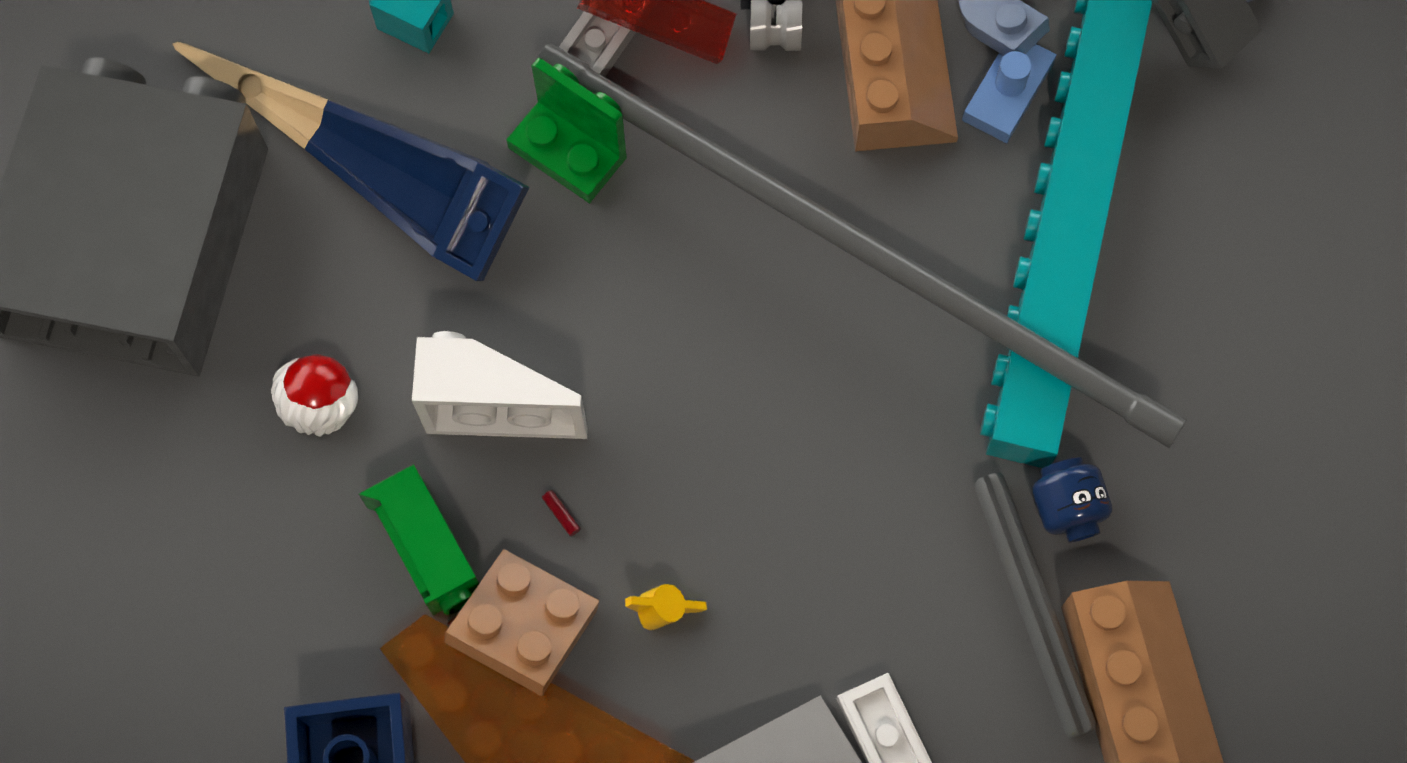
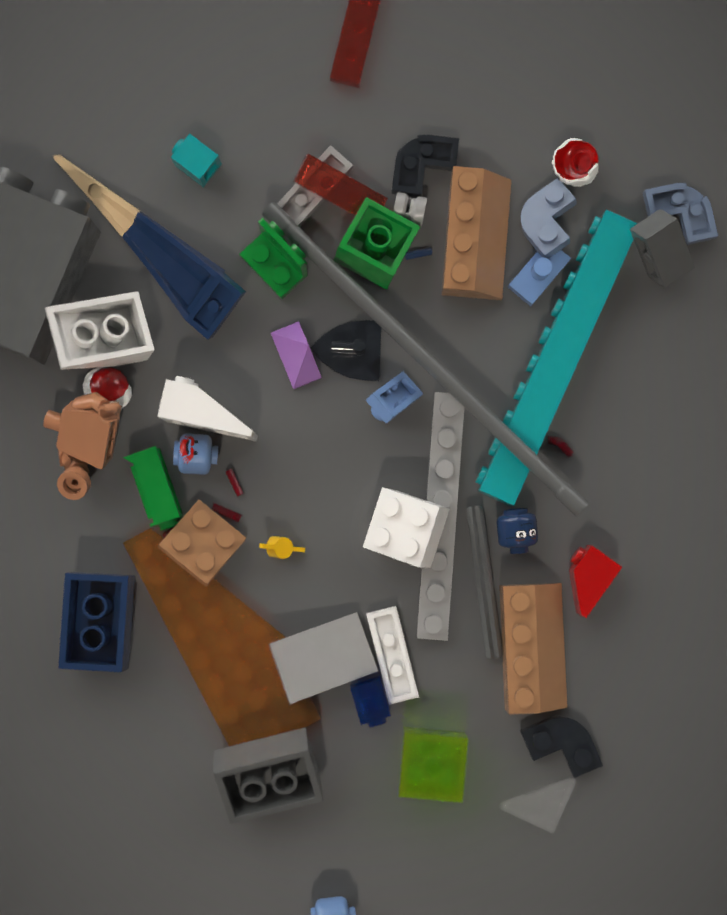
camera: 10 degrees right, 15 degrees up
(286, 469) = (84, 437): none -> nougat torso
(294, 289) = (100, 332): none -> white slope
(485, 470) = (195, 454): none -> medium blue head
(549, 561) = (231, 513): none -> dark red leg
(632, 284) = (296, 355): none -> medium lavender slope
(723, 261) = (352, 349): none -> black shield
(732, 81) = (376, 243): none -> green slope
(803, 93) = (418, 253): none -> dark blue piece
(809, 318) = (393, 397): none -> medium blue tile
(879, 524) = (406, 528): none -> white piece
(934, 513) = (442, 490): none -> light grey plate
(1096, 346) = (565, 448): none -> dark red leg
(1218, 558) = (590, 577): none -> red slope

